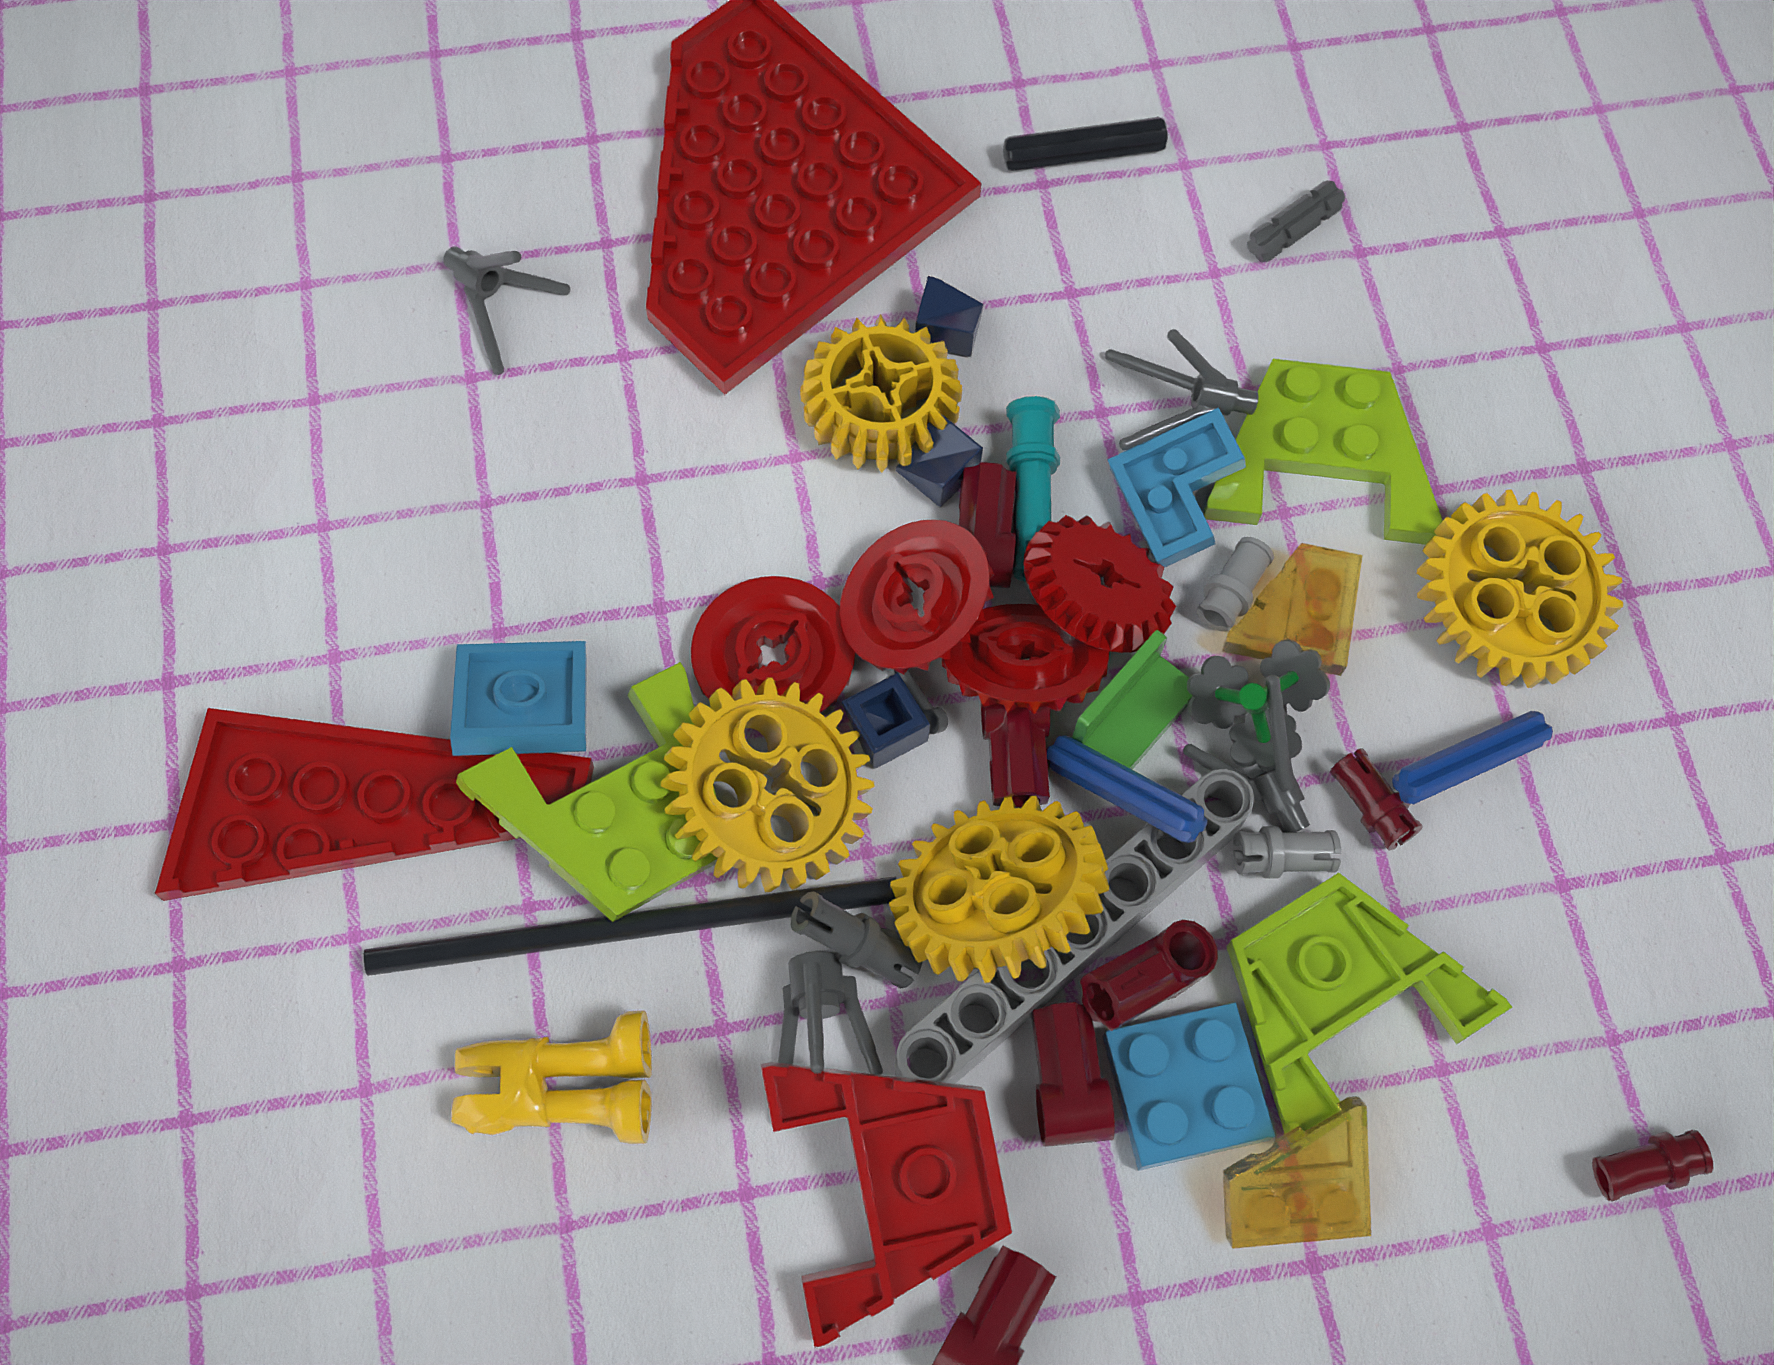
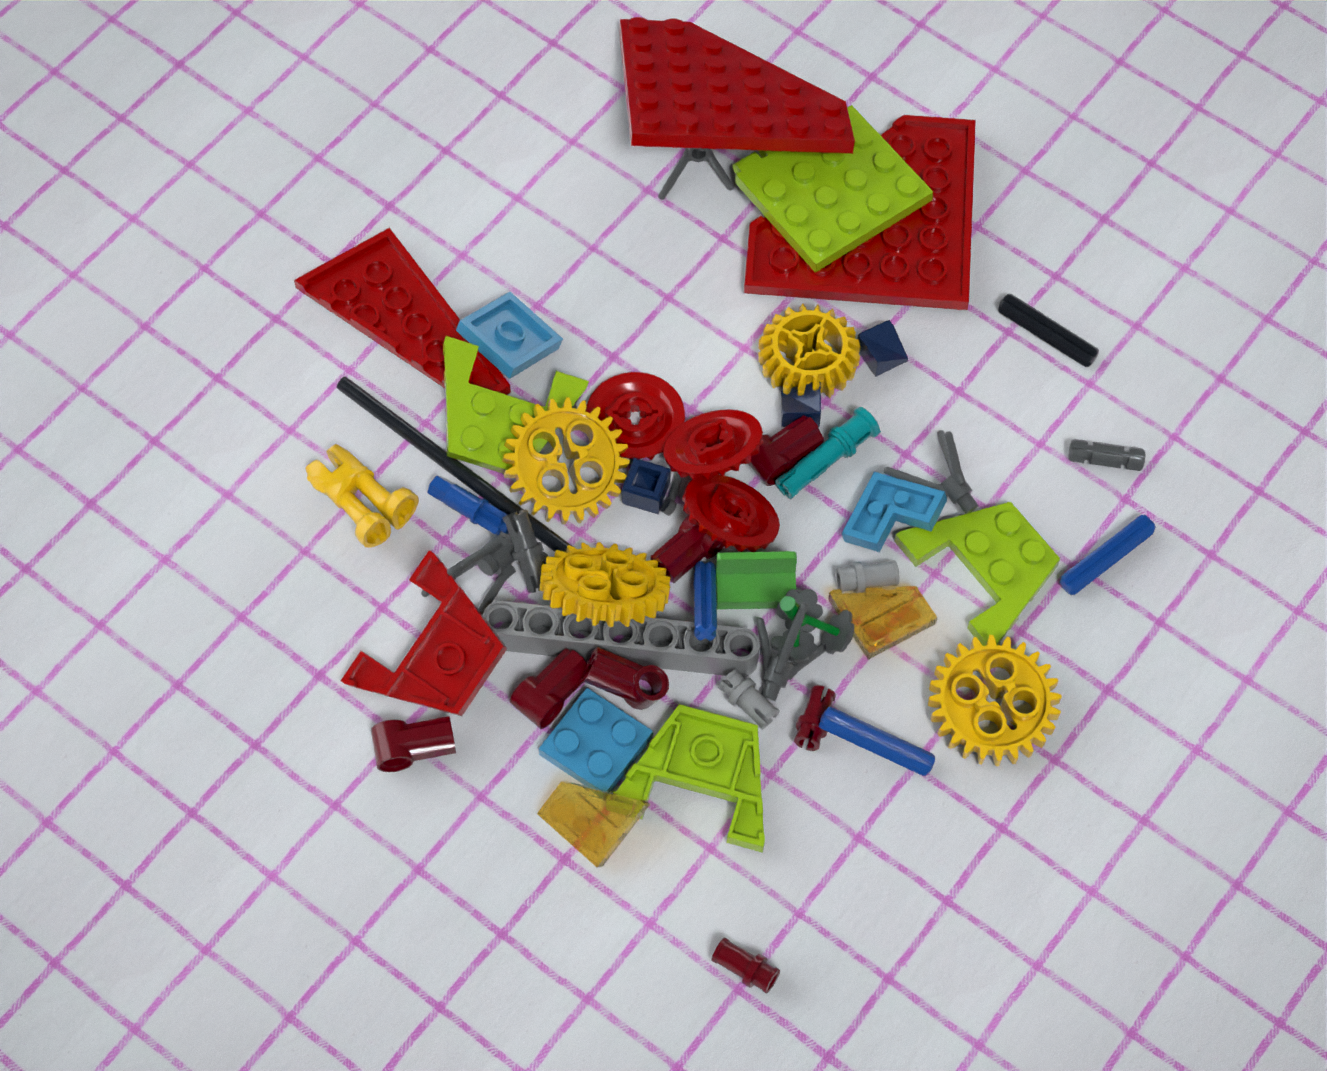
camera: 50 degrees right, 5 degrees down
(451, 193) = (714, 95): none -> red plate
(685, 184) = (832, 199): none -> lime hinge
(711, 954) = (468, 505): none -> blue piece
(1064, 578) = (778, 519): red gear -> none
(1422, 325) = (1107, 554): none -> blue axle

